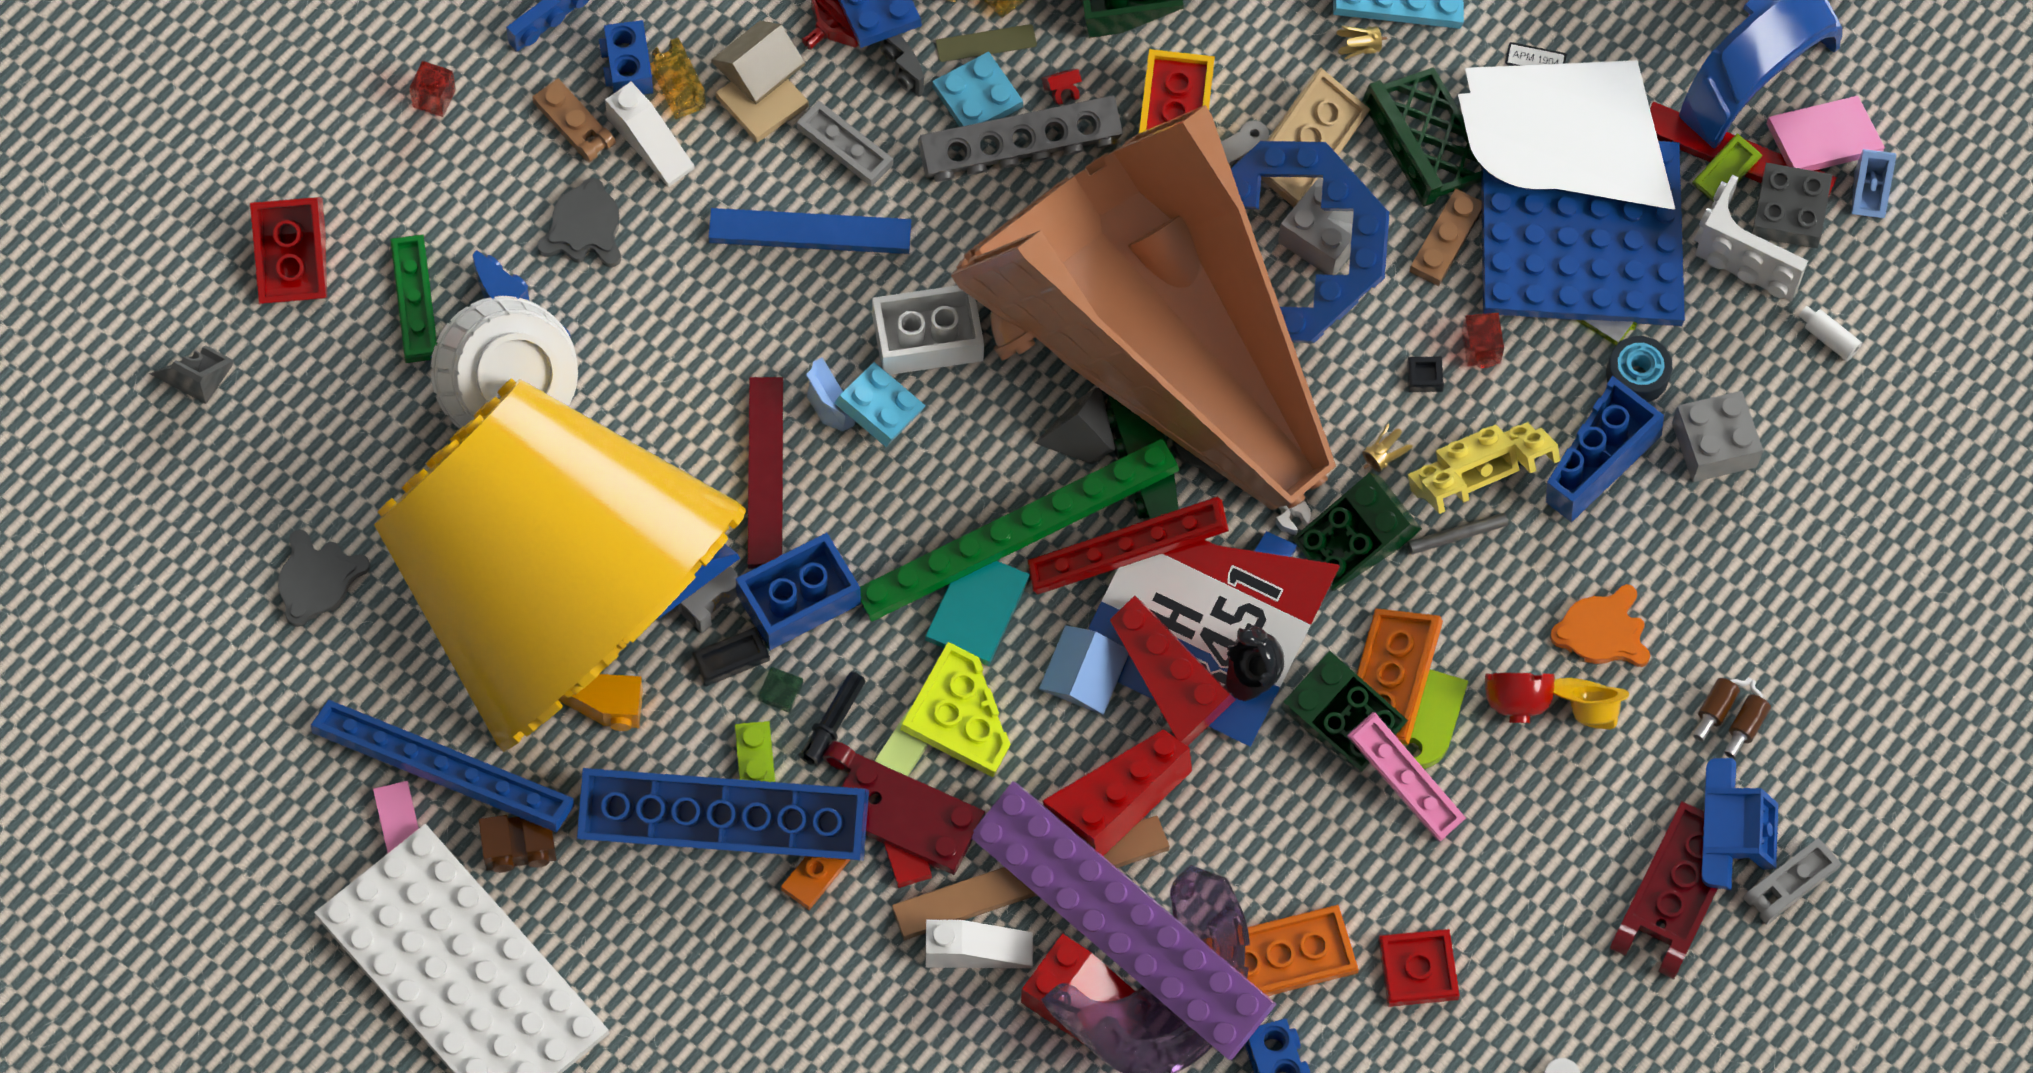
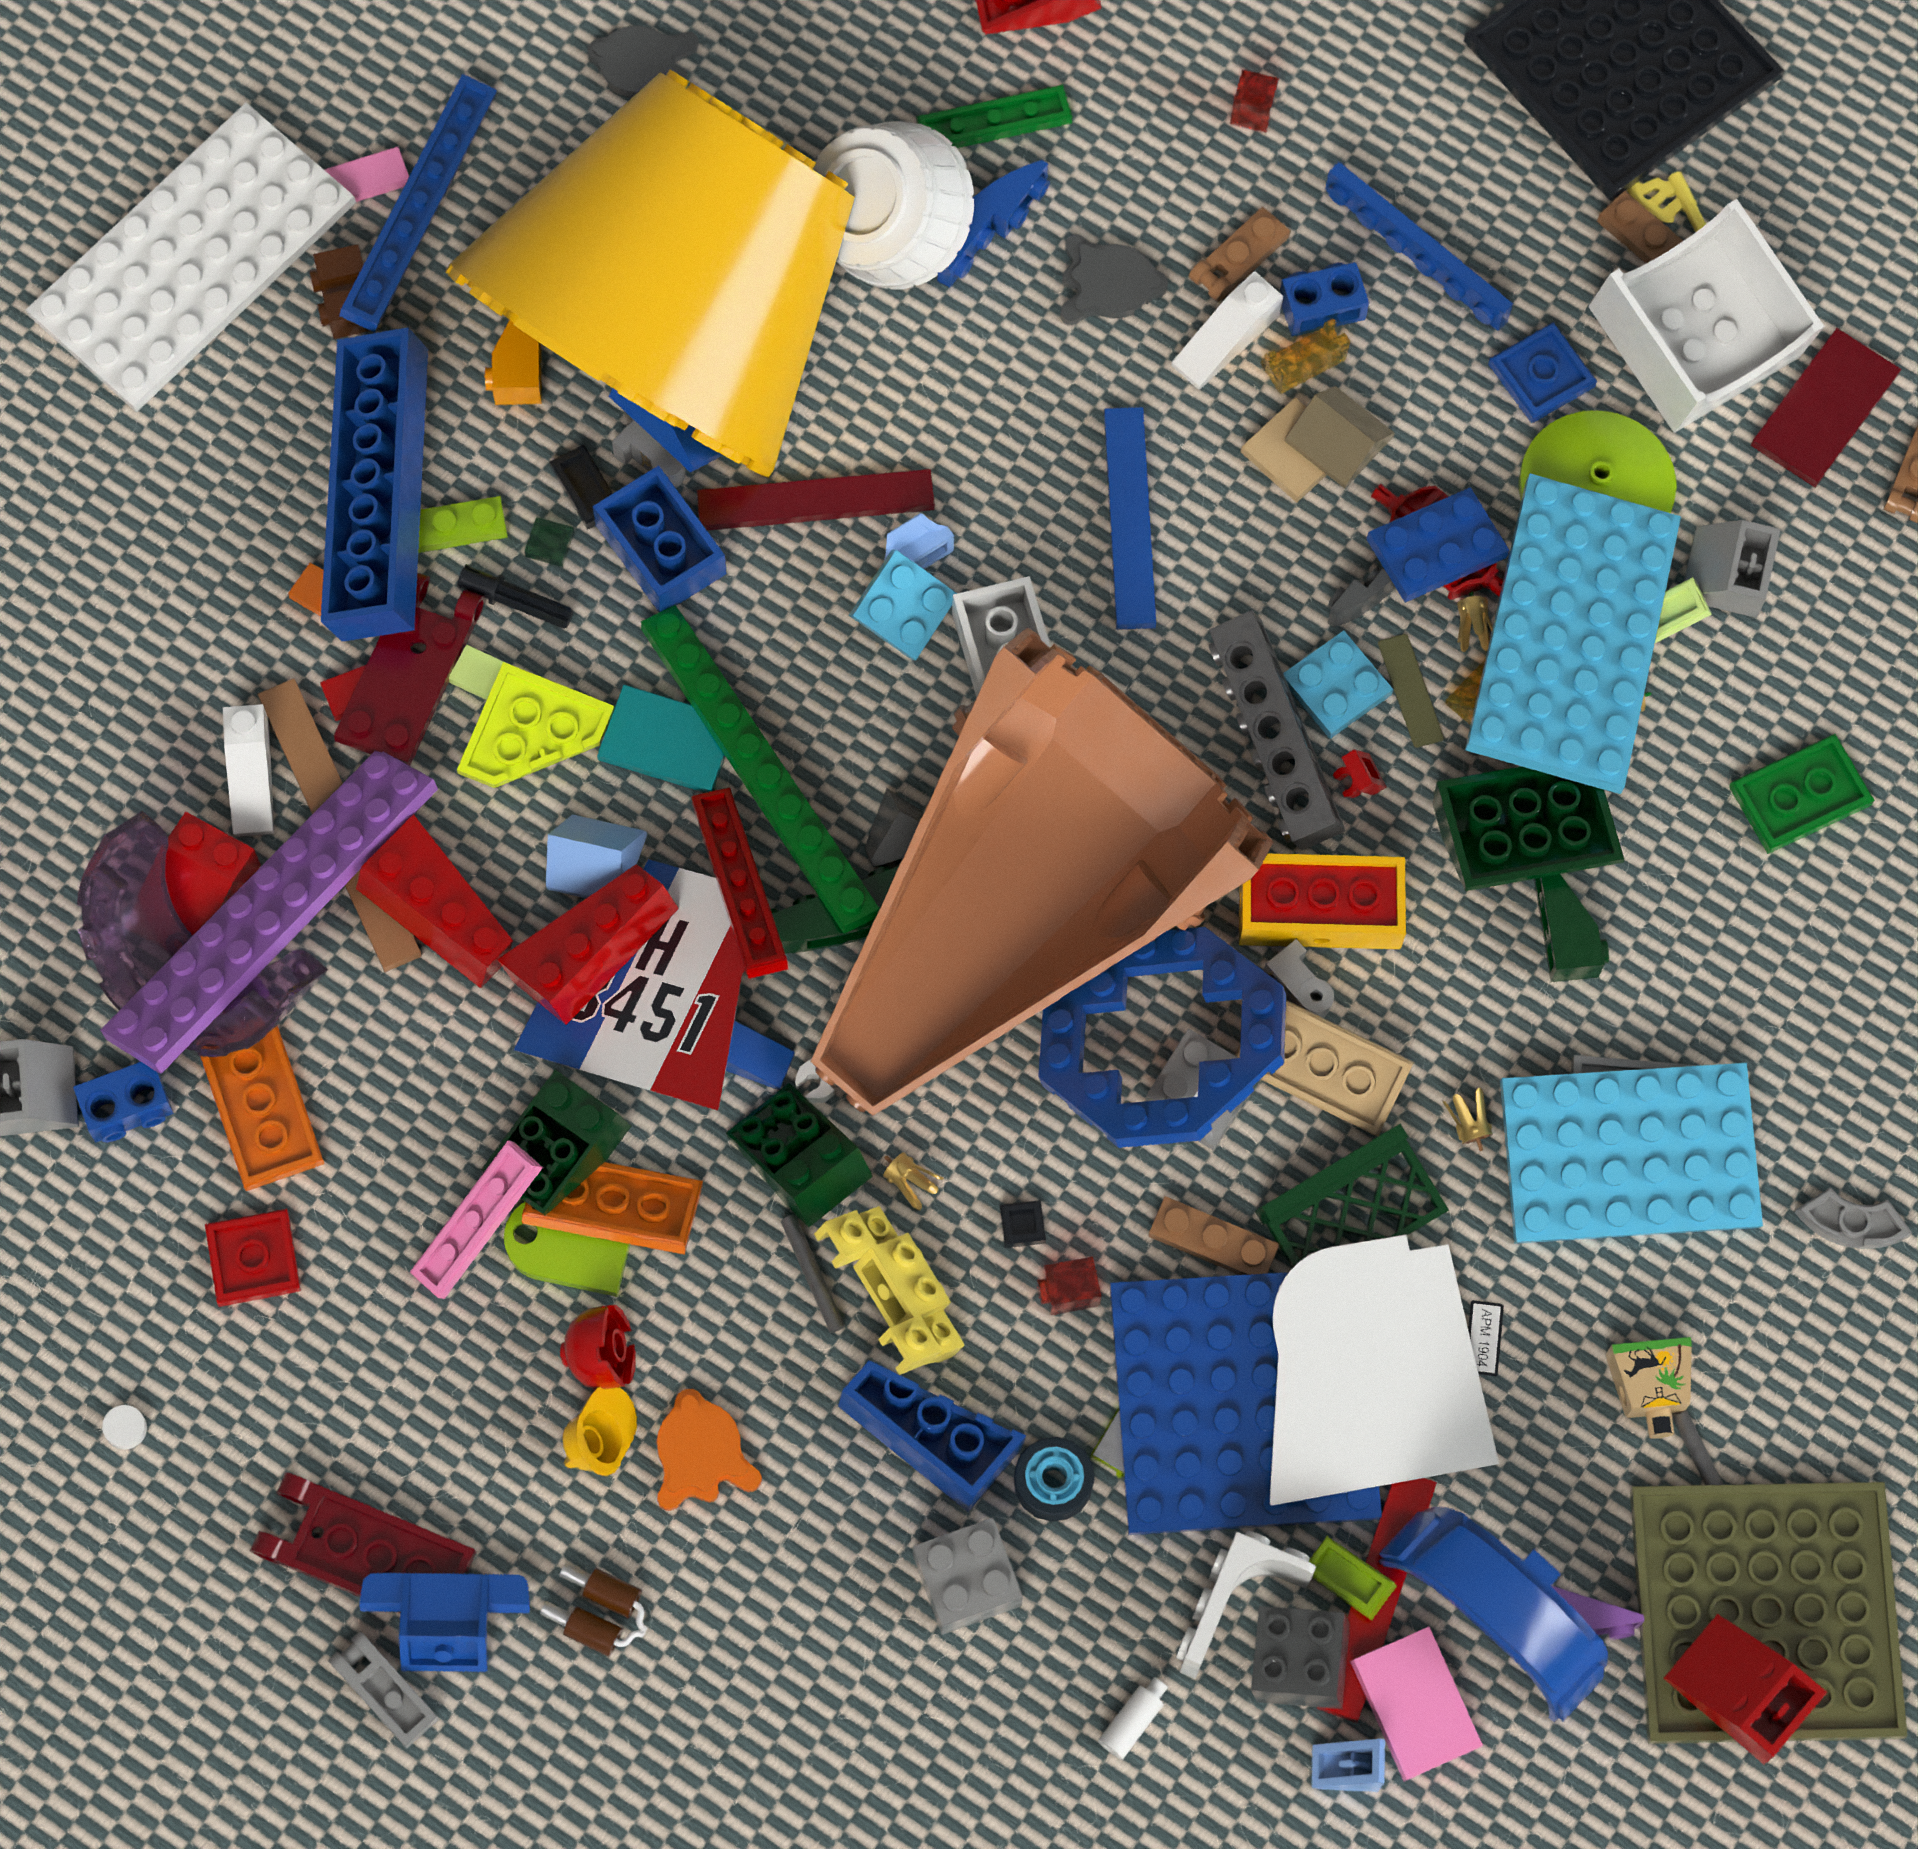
camera: 85 degrees right, 5 degrees up
(845, 143) = (1246, 542): light grey plate -> none
(1254, 663) = (594, 1030): black piece -> none

